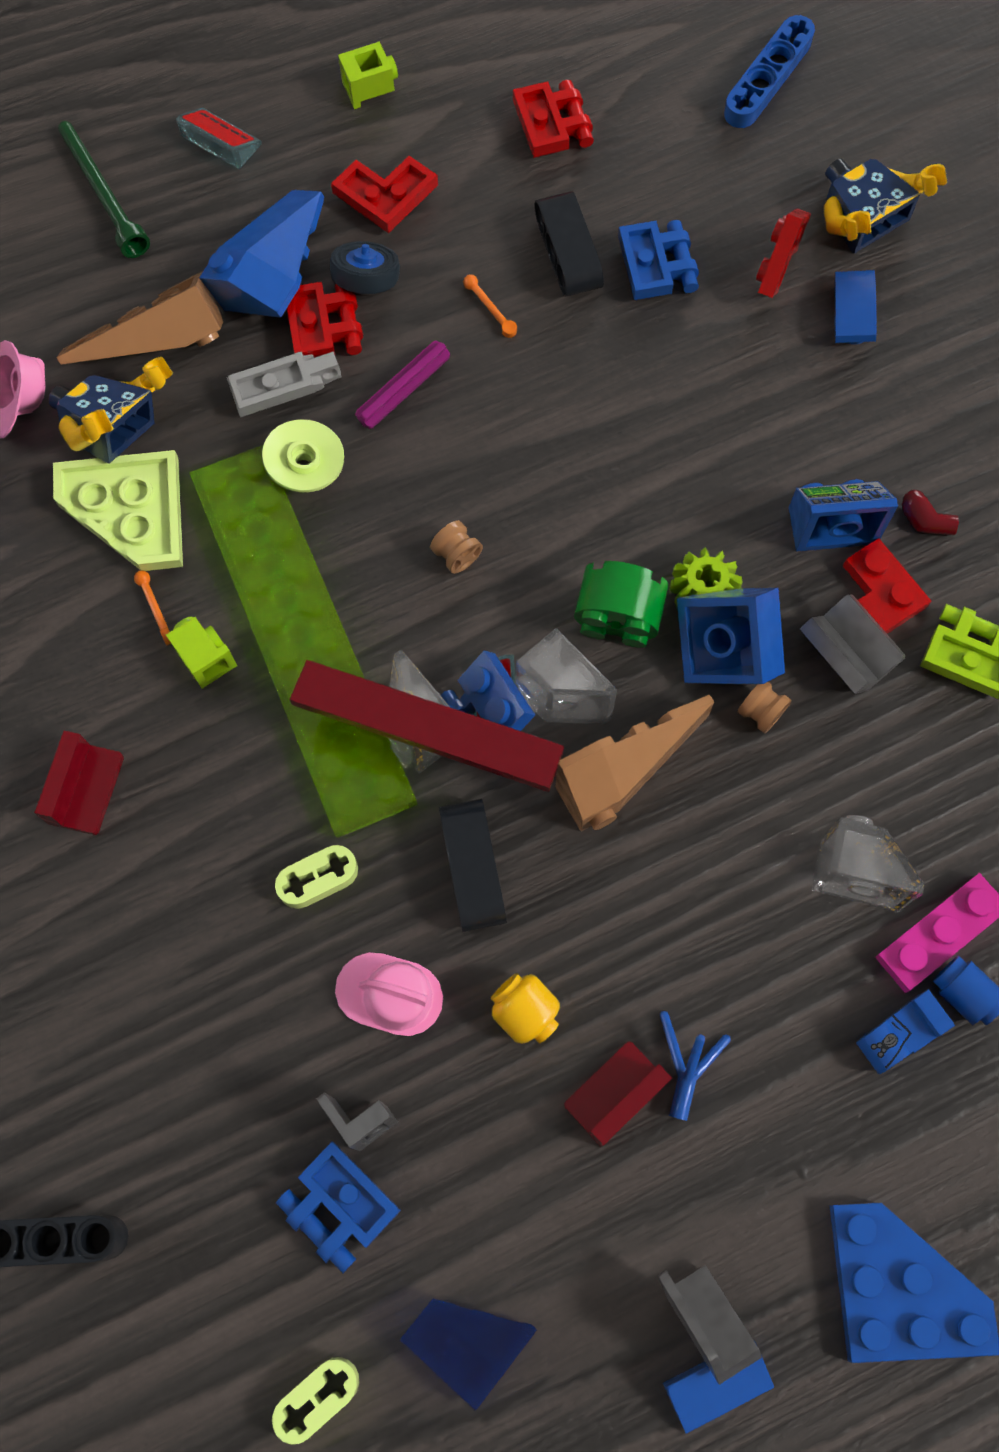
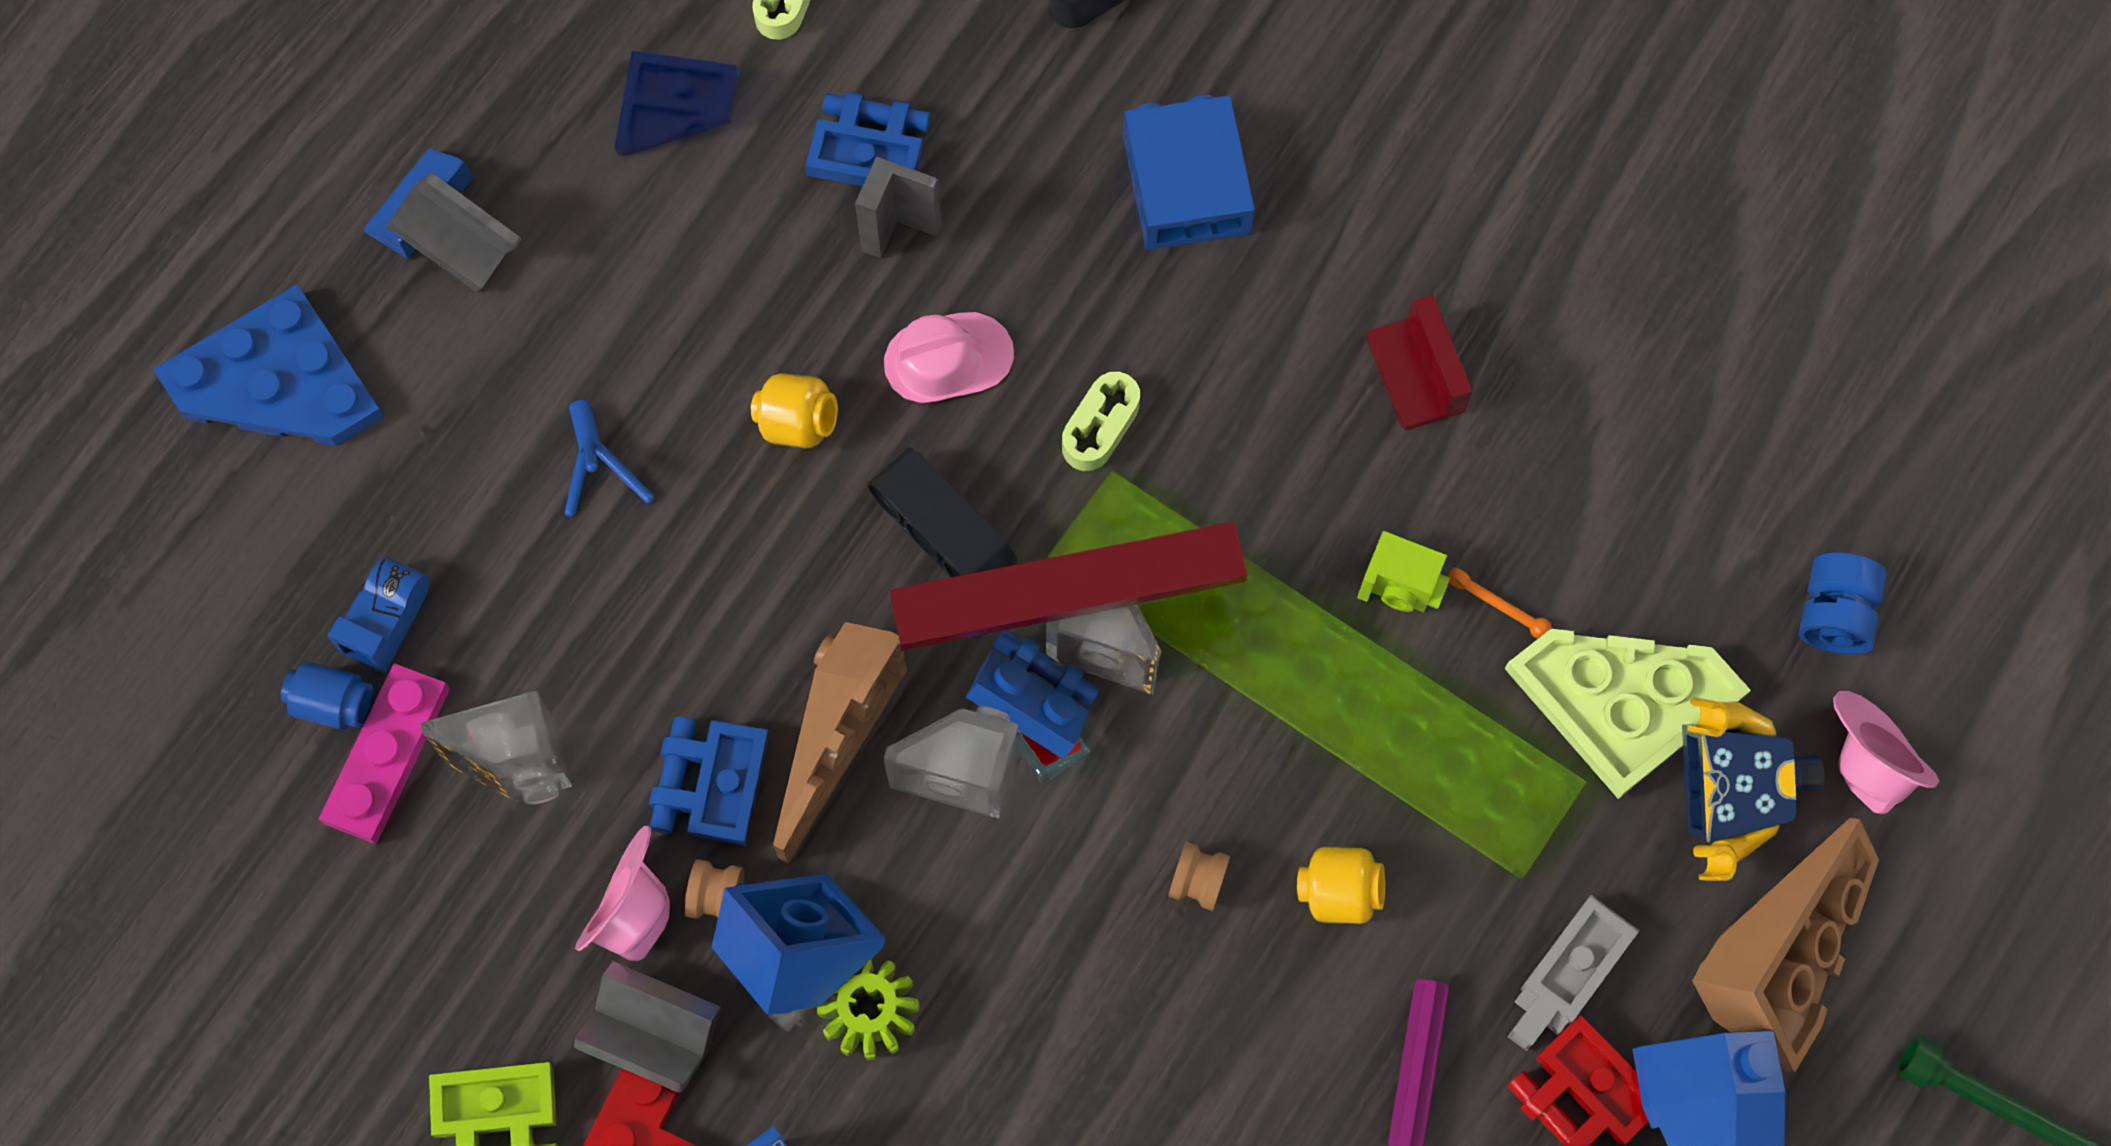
camera: 145 degrees right, 0 degrees up
(123, 1027) = (1188, 172): none -> blue brick
(303, 441) = (1471, 851): yellowish green dish -> none
(375, 493) = (1342, 885): none -> yellow head
(616, 1093) = (652, 390): dark red panel -> none
(620, 603) = (952, 904): green brick -> none
(717, 774) = (726, 782): none -> blue plate
(827, 727) = (632, 907): none -> bright pink piece

